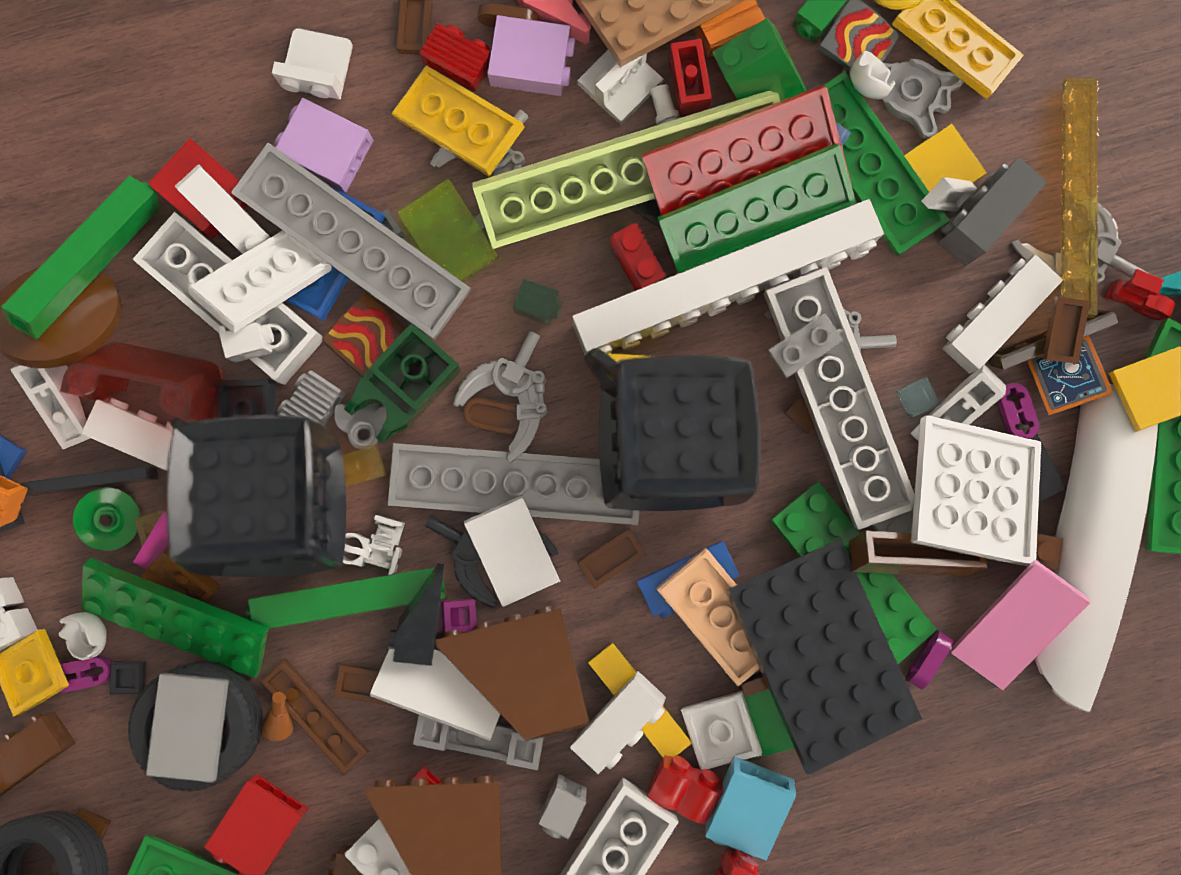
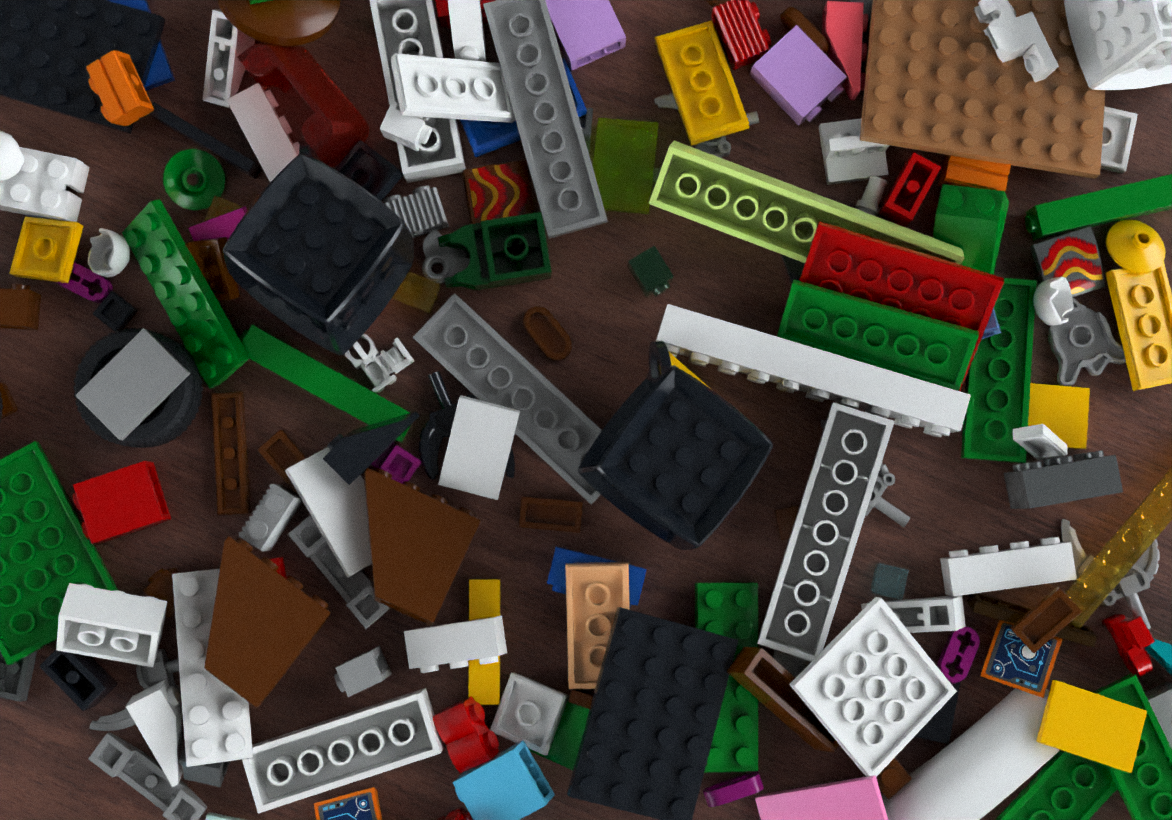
camera: 40 degrees right, 0 degrees up
(277, 722) = (200, 435): dark orange cone -> none
(388, 742) = (271, 517): none -> light grey brick
(514, 381) = (584, 318): light grey bar -> none
(636, 257) = (755, 298): red brick -> none
(804, 345) = (827, 467): light grey brick -> none

